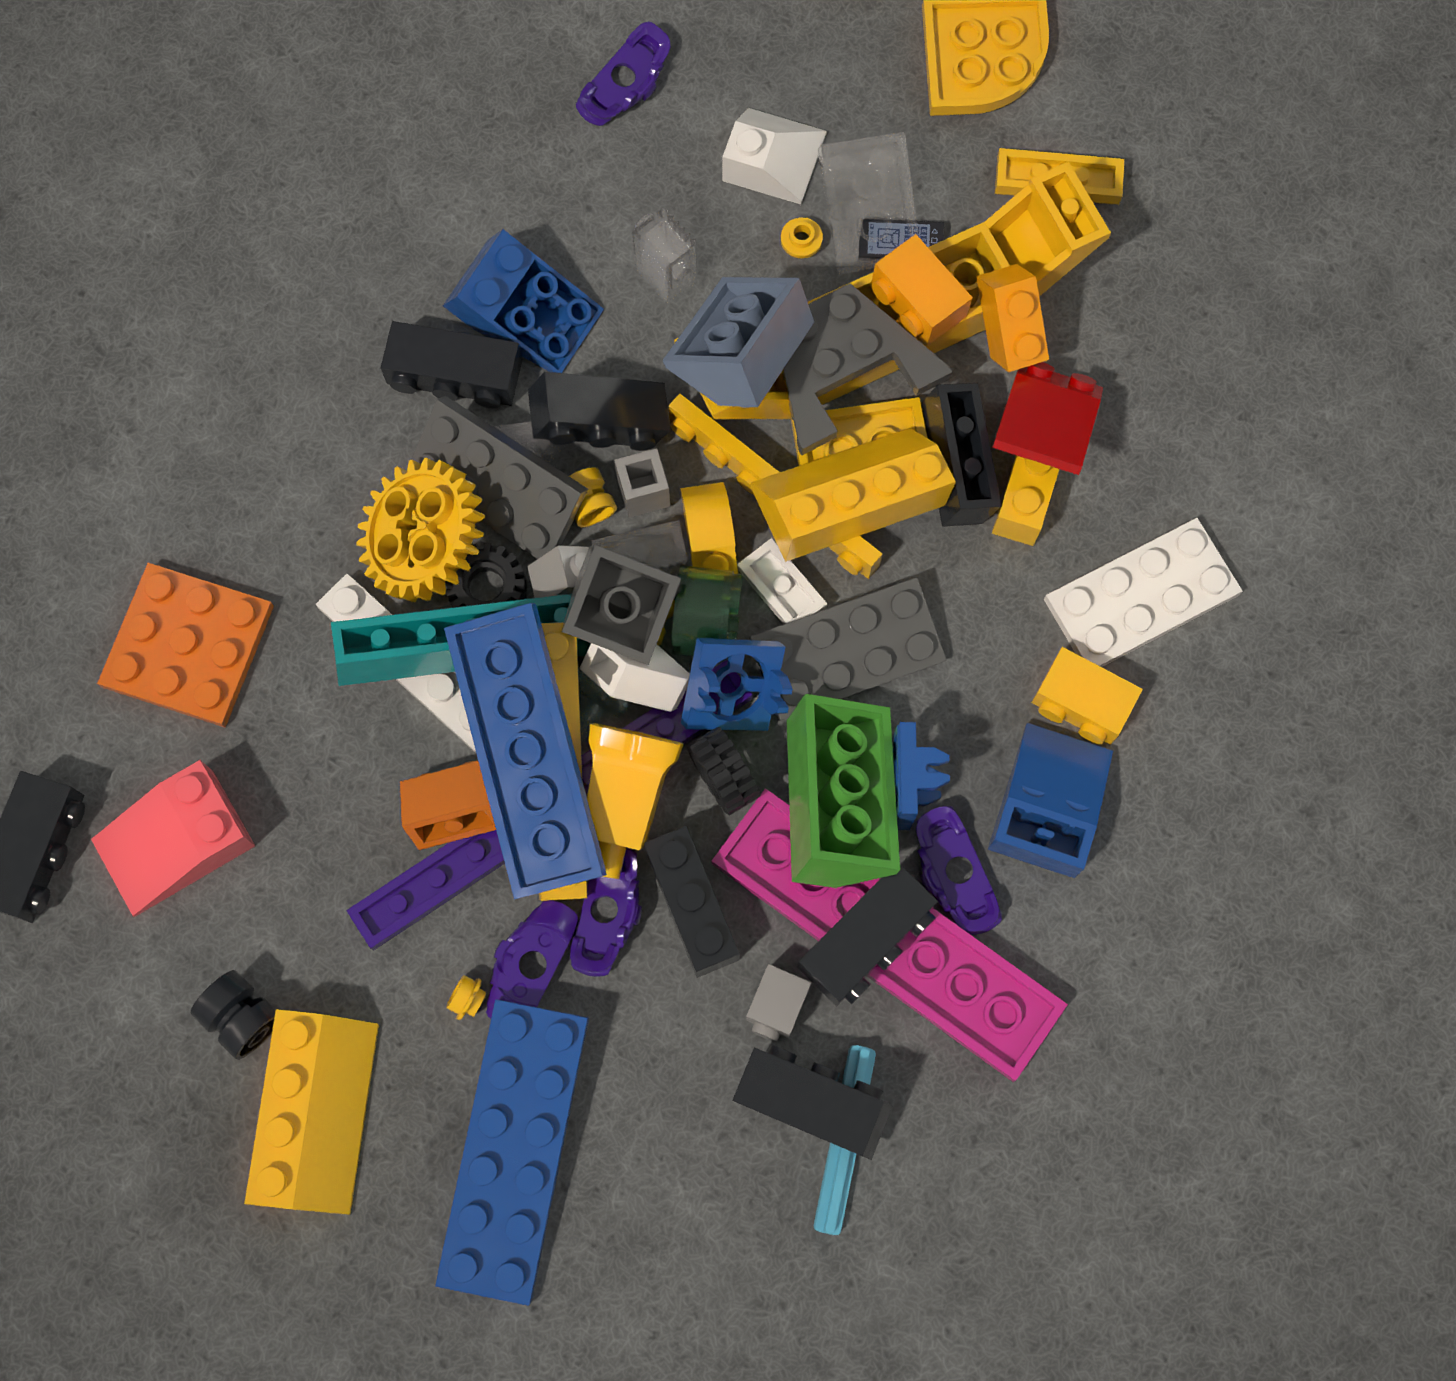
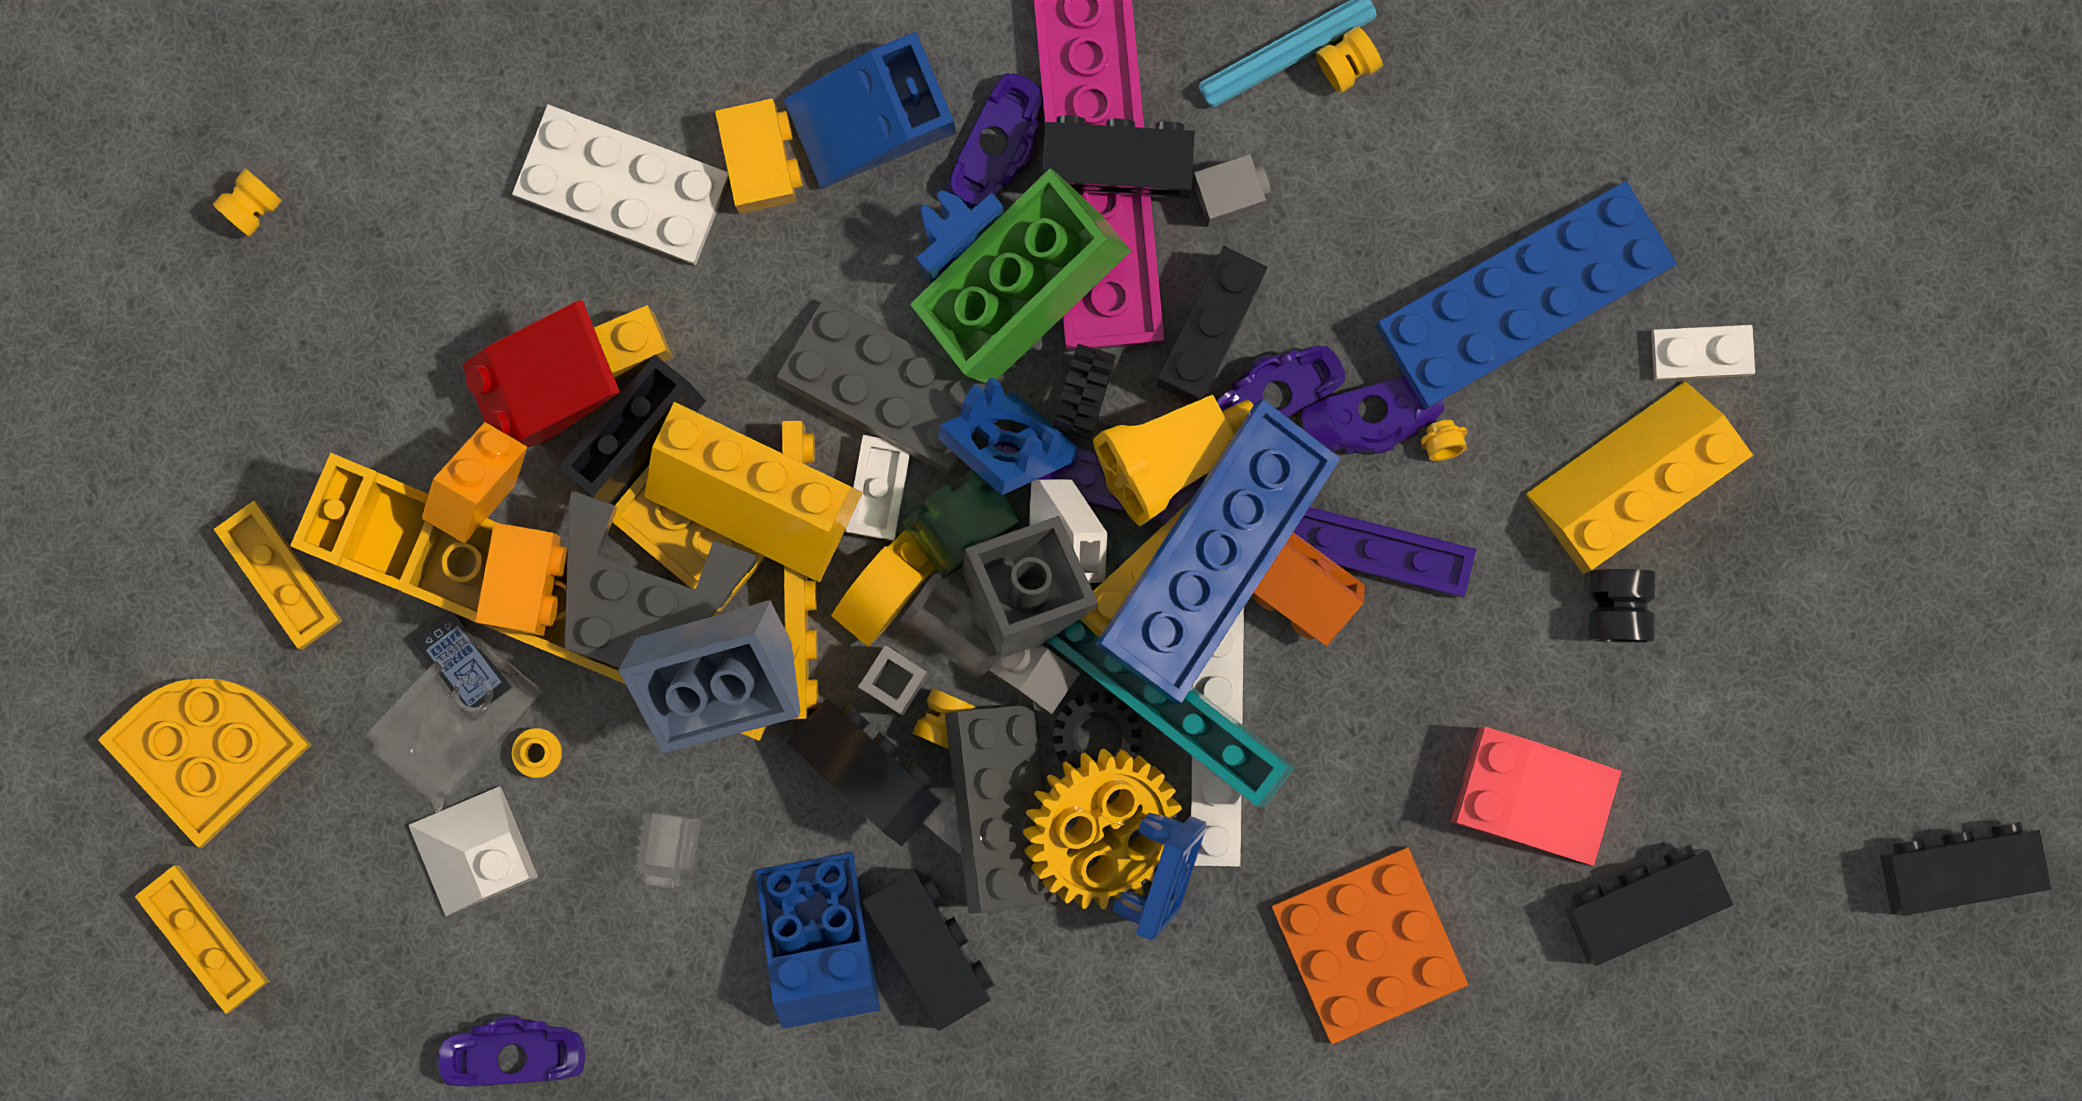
camera: 125 degrees left, 10 degrees up
(356, 1247) = (1703, 352): none -> white plate
(358, 562) = (1172, 875): none -> blue piece
(797, 1187) = (1349, 59): none -> yellow wheel
(814, 1100) = (1284, 93): black brick -> none
(1333, 347) = (247, 202): none -> yellow wheel

